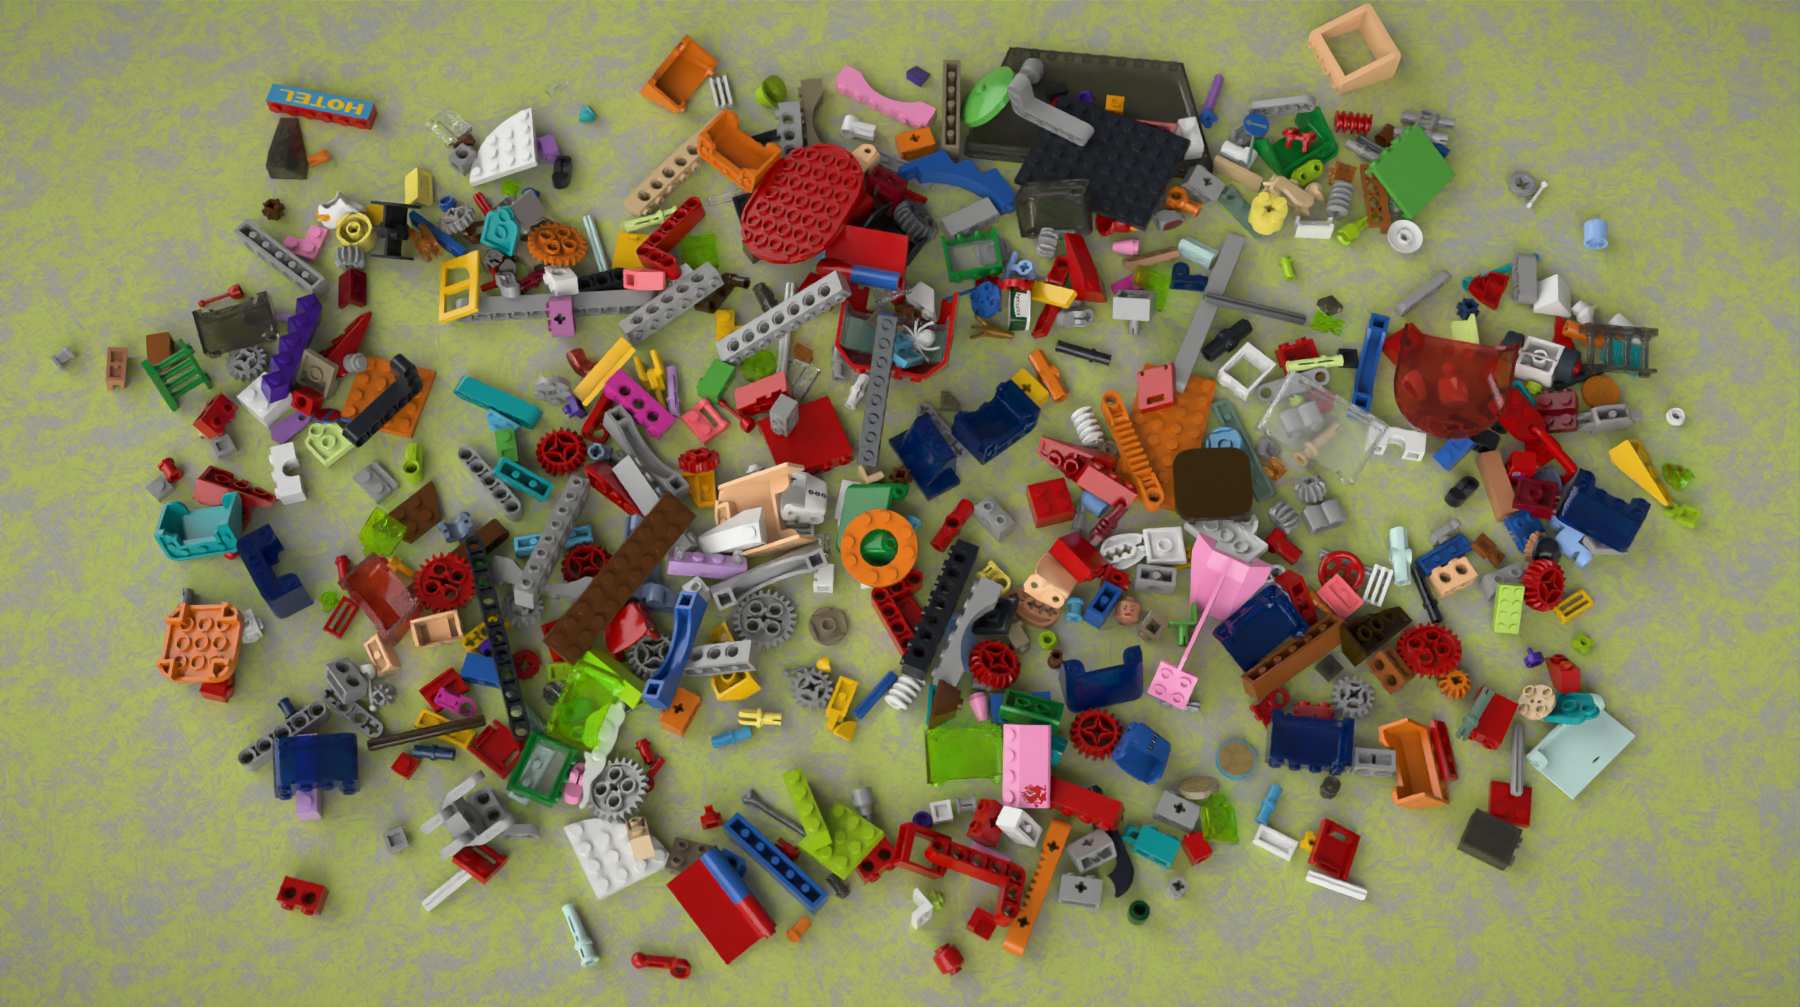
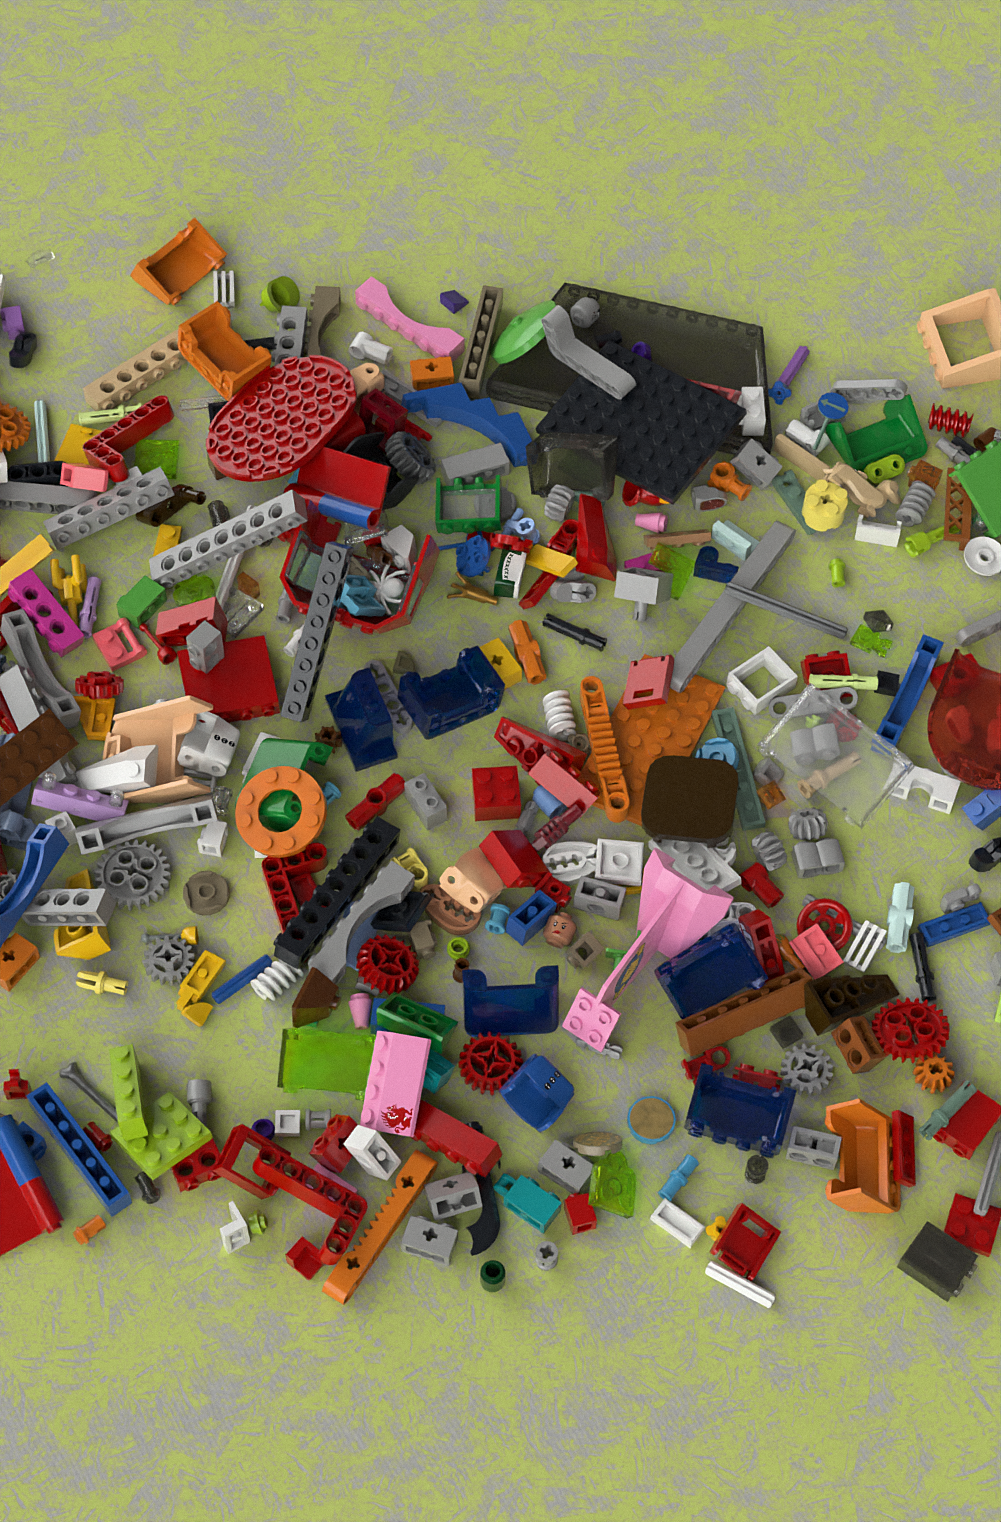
camera: 10 degrees right, 5 degrees down
(586, 114) = (66, 291): teal plate -> none
(731, 737) = (63, 999): dark azure axle -> none
(870, 475) = (294, 731): tan panel -> none
(948, 959) = (256, 1292): red head -> none
(1115, 104) = (672, 361): light orange brick -> none
(1227, 340) = (747, 642): black piece -> none
(1305, 137) = (875, 423): red plate -> none
(1454, 580) = (960, 955): light nougat brick -> none

